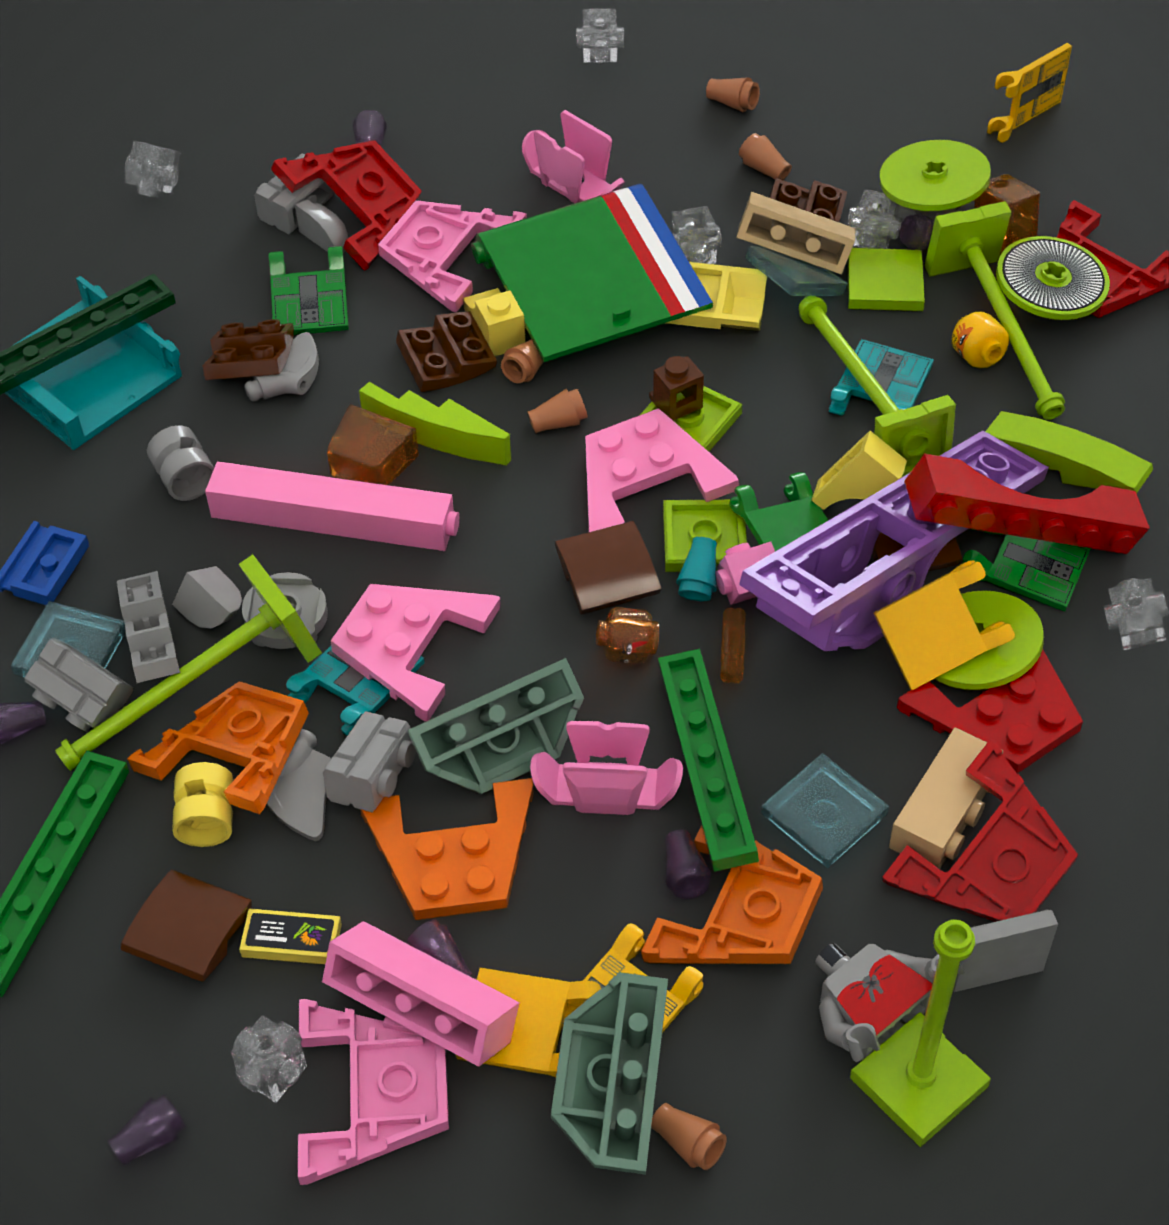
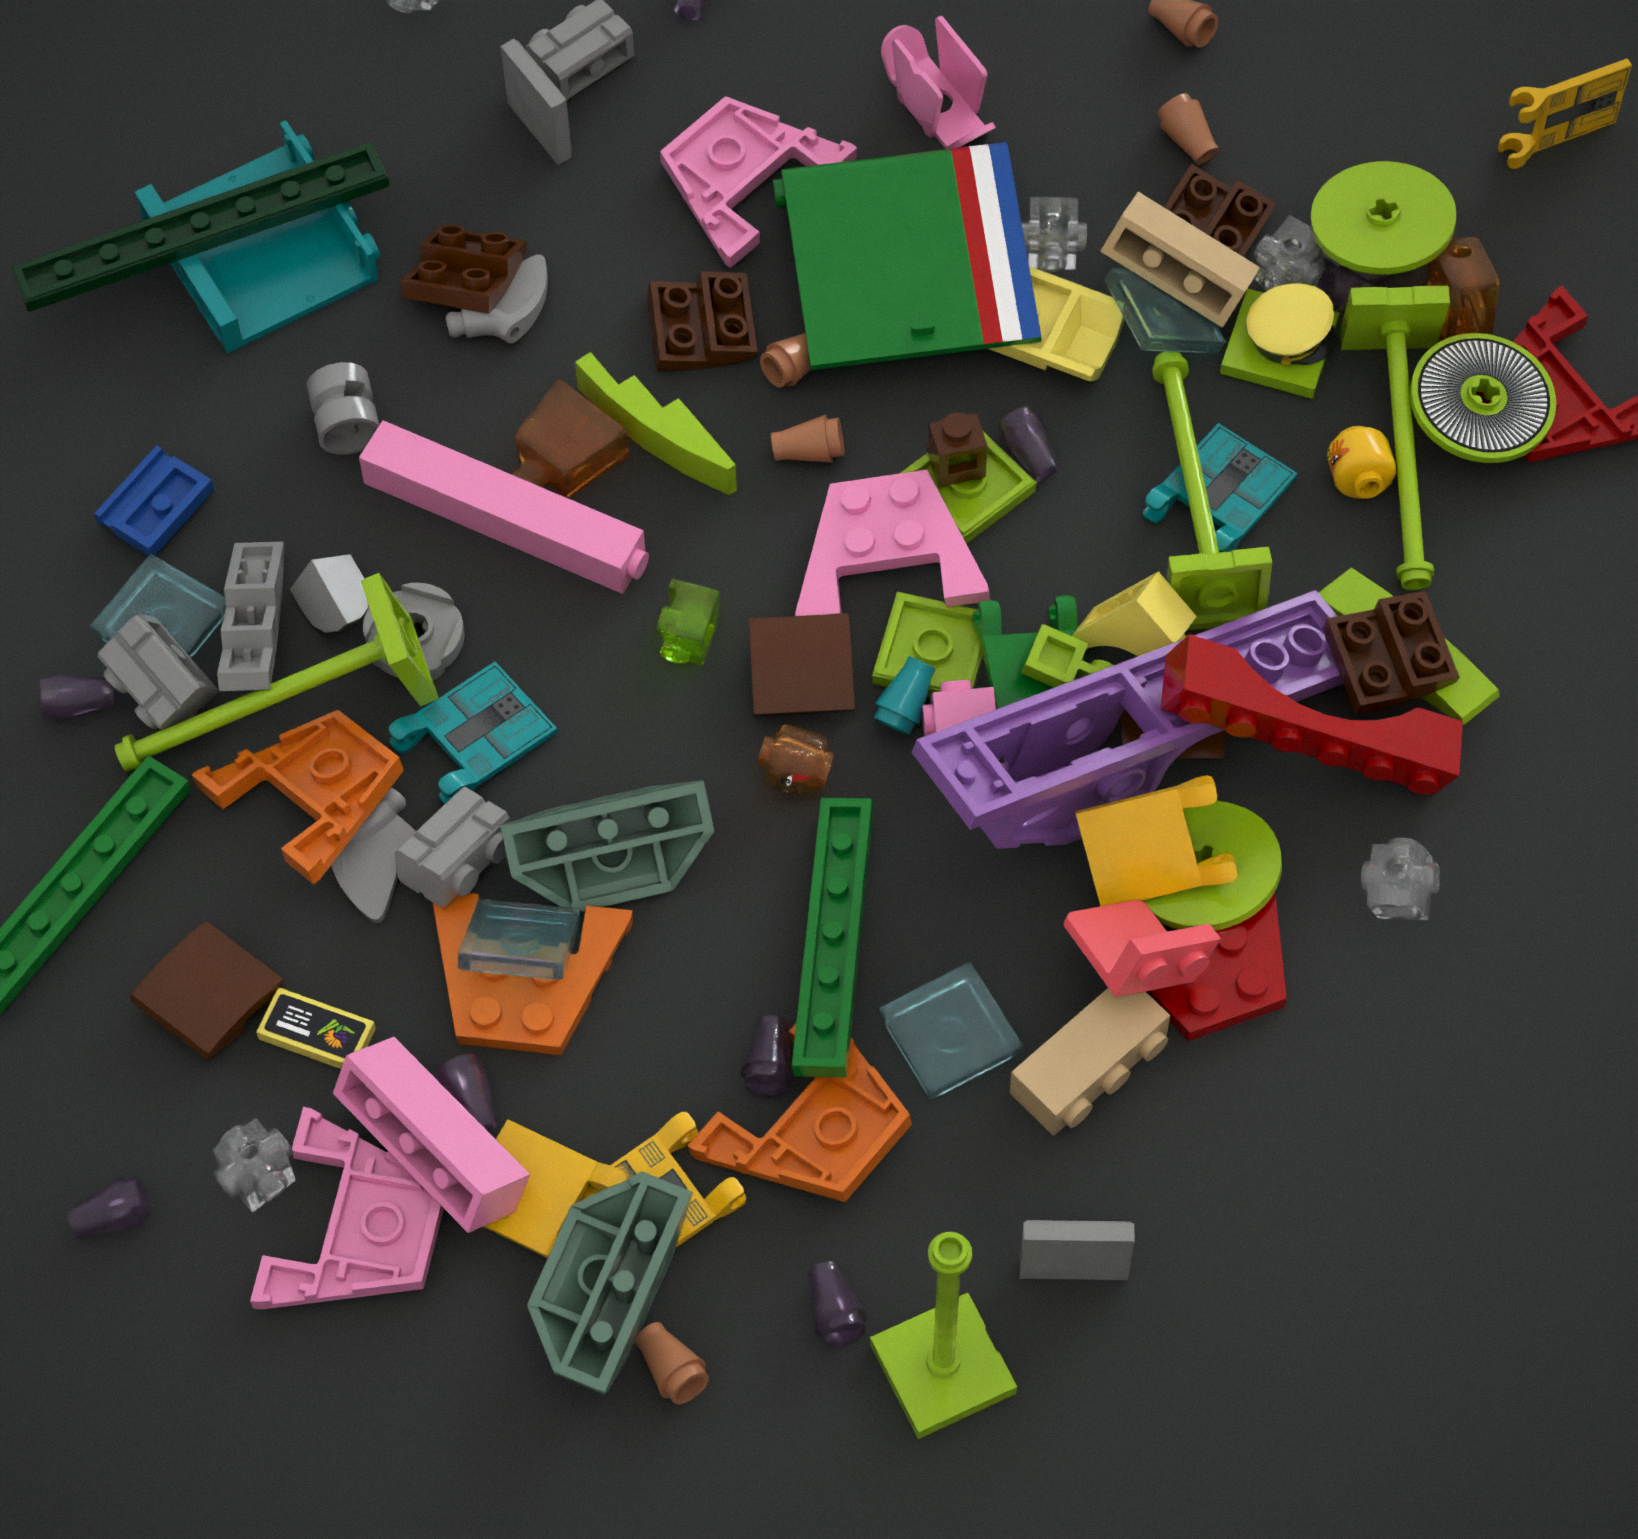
camera: 15 degrees right, 10 degrees up
(201, 808) = (254, 861): light yellow wheel -> none
(274, 225) = (536, 101): none -> light grey tile
(310, 299) = (559, 208): green flag -> none
(320, 225) = (603, 106): light grey brick -> none
(365, 181) = (670, 59): red wing -> none
(393, 629) = (532, 684): bright pink wing -> none
(447, 819) = (519, 939): none -> clear light blue tile
(497, 318) = (774, 293): light yellow arch -> none
(506, 554) = (688, 622): none -> clear neon green brick
(606, 786) = (689, 933): bright pink piece -> none
(725, 377) = (1028, 441): none -> clear purple cone
(733, 645) = (912, 808): clear orange axle -> none
(807, 512) = (1058, 658): none -> lime plate
(813, 1051) = (835, 1306): none -> clear purple cone
(871, 995) = (895, 1272): torso -> none
(894, 259) = (1292, 324): none -> light yellow piece
(964, 710) = (1136, 951): none -> coral bracket
(1007, 864) = (1127, 1149): red wing -> none
(1034, 568) = (1305, 792): green flag -> none
(1063, 454) = (1390, 652): none -> reddish brown slope

